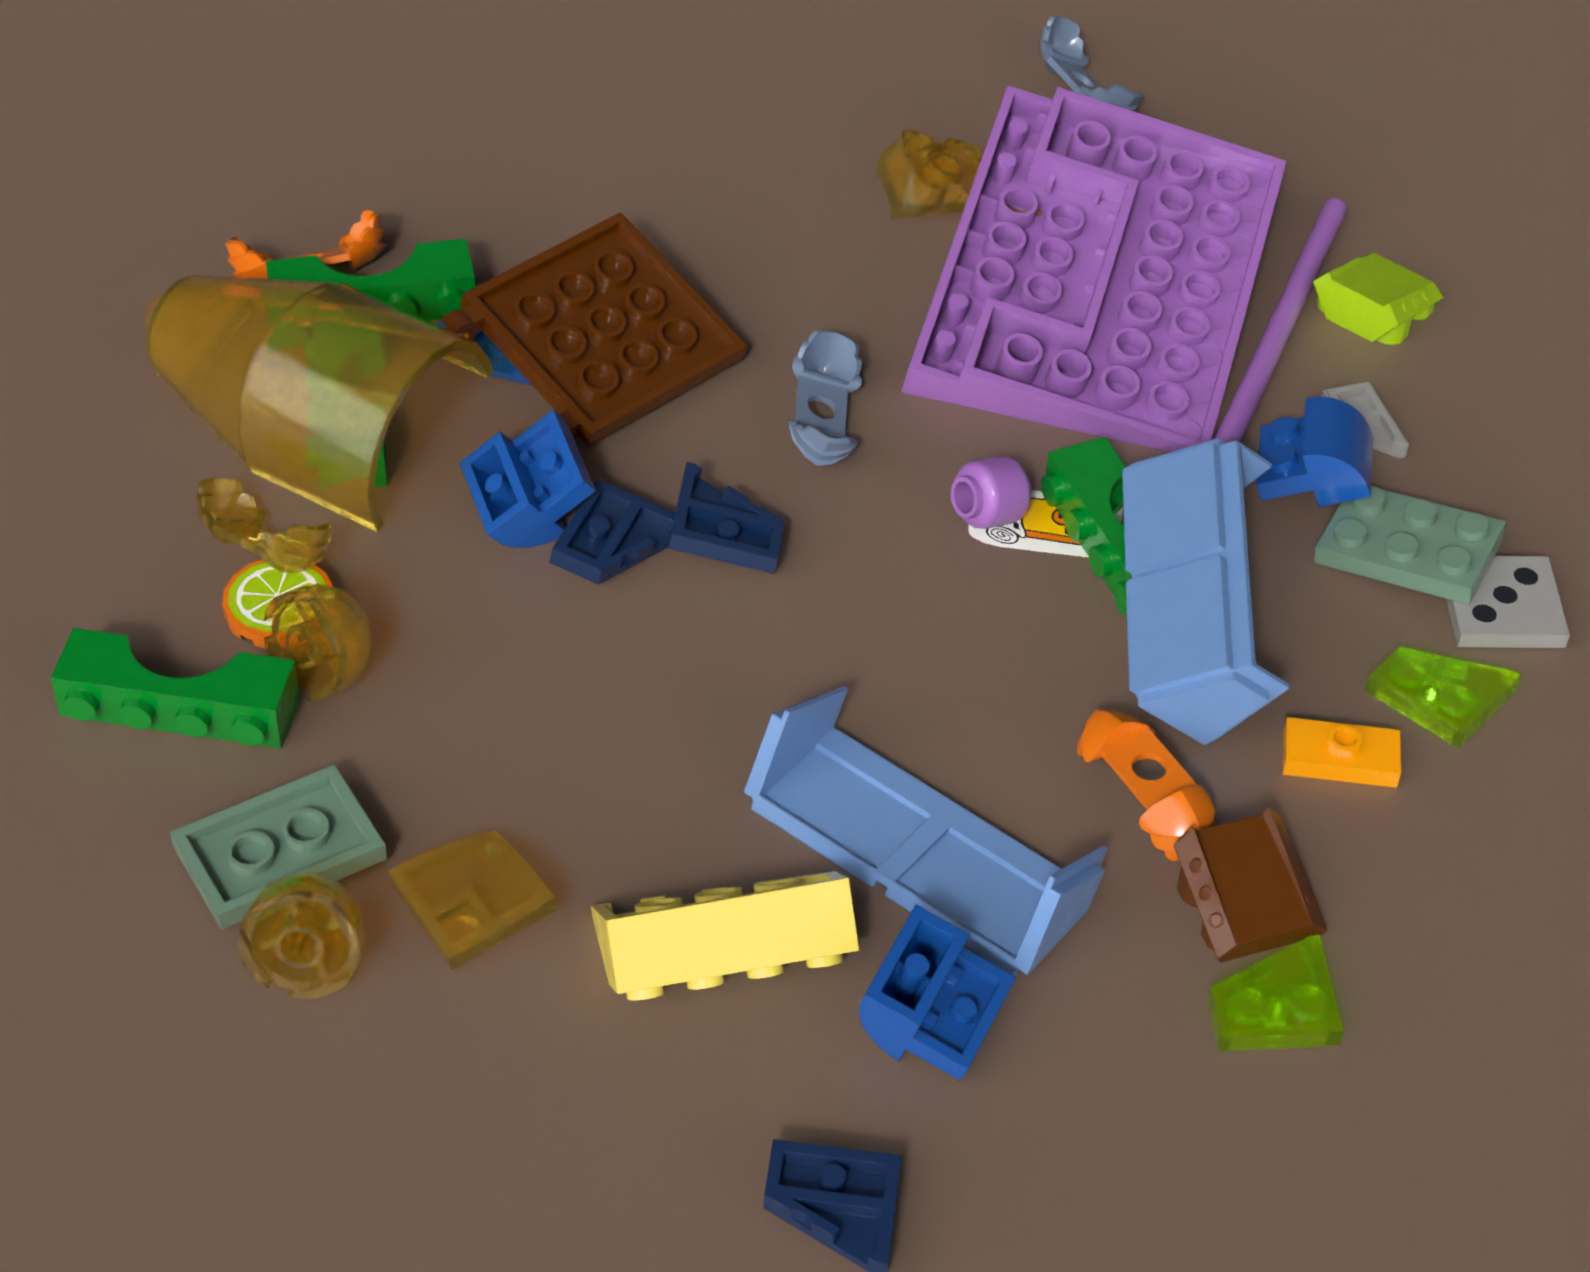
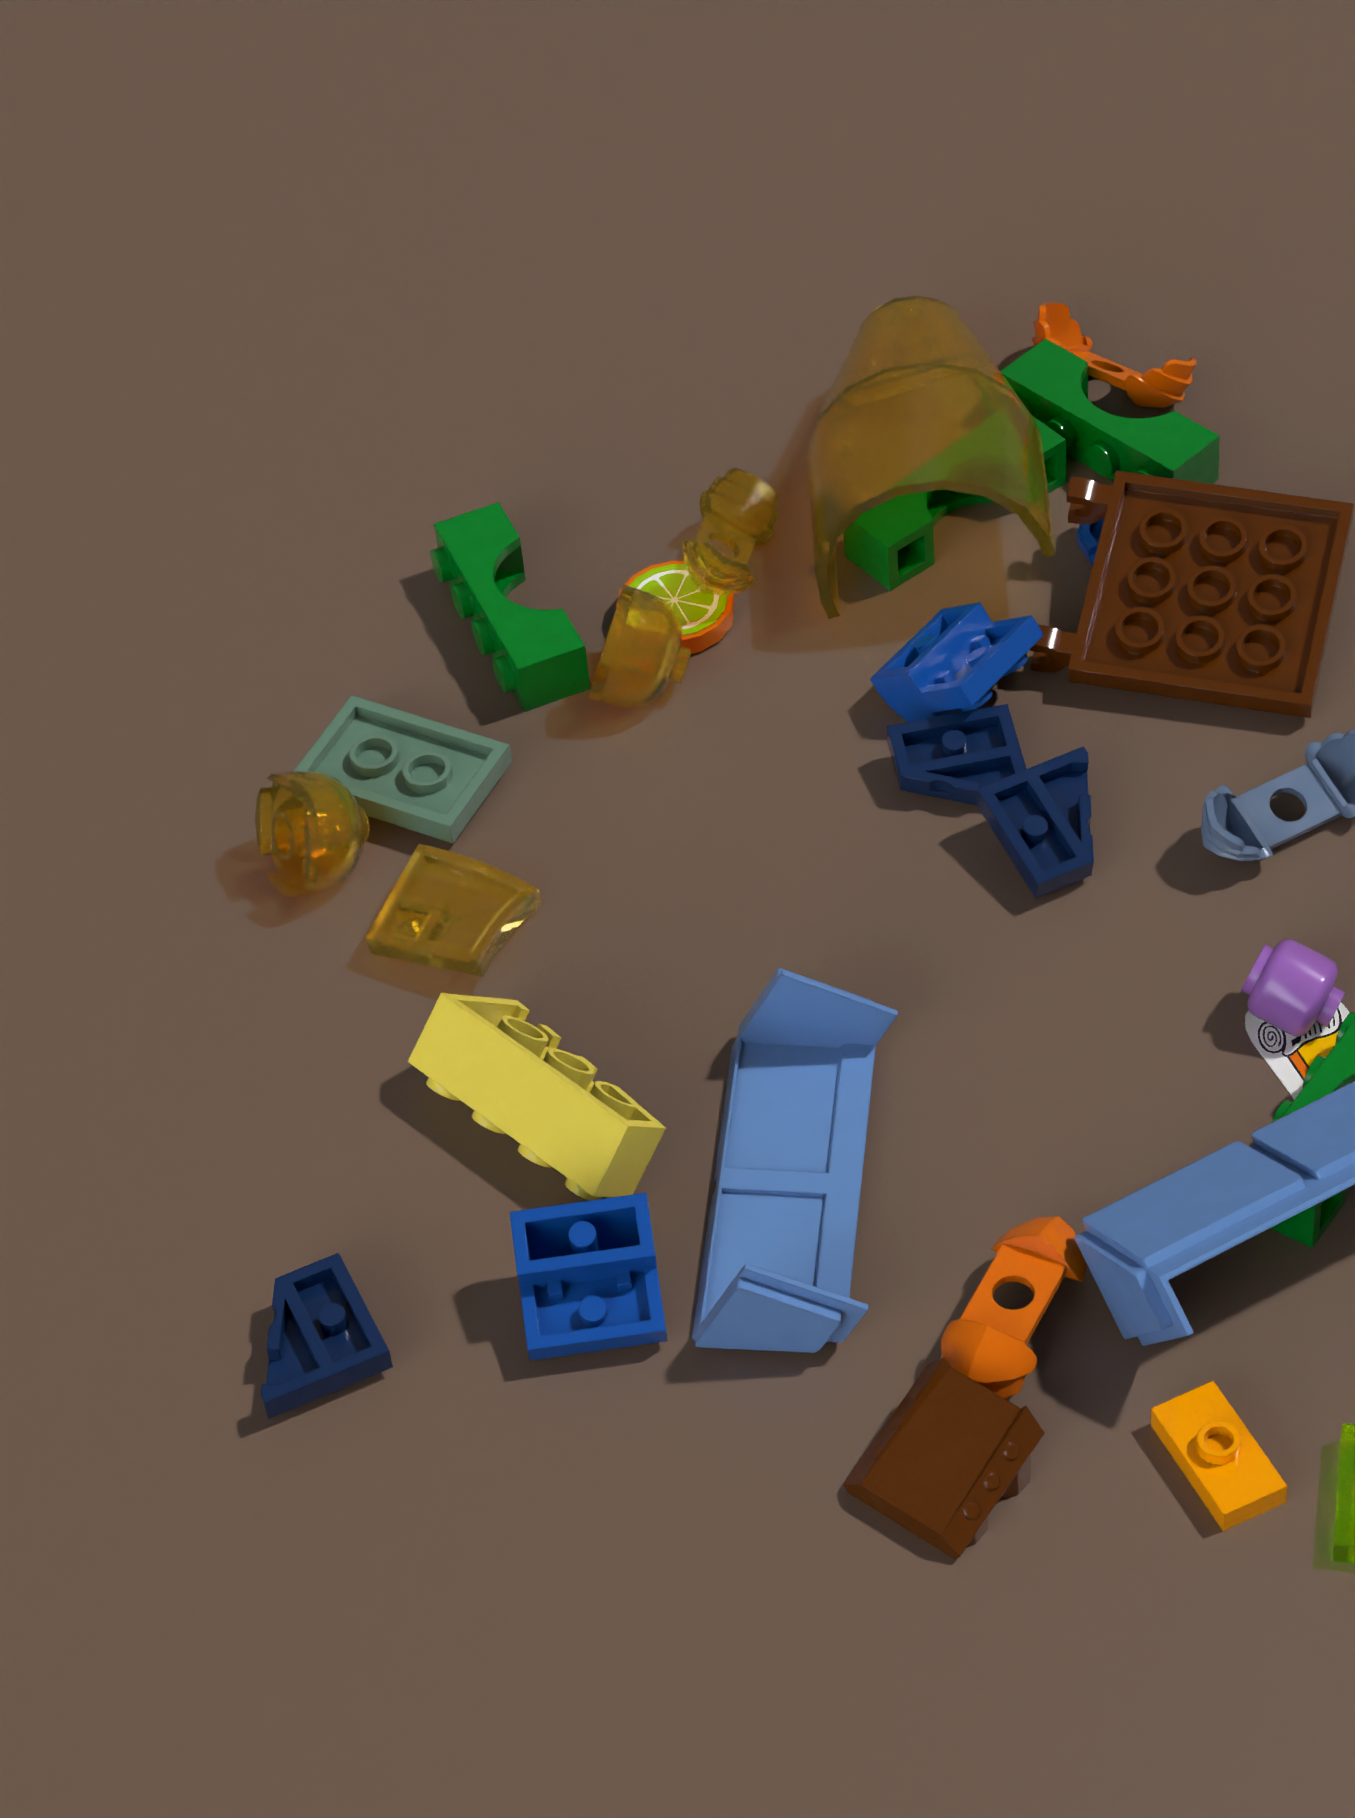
camera: 65 degrees right, 0 degrees up
(1278, 1002) = (827, 1558): clear neon green wing -> none

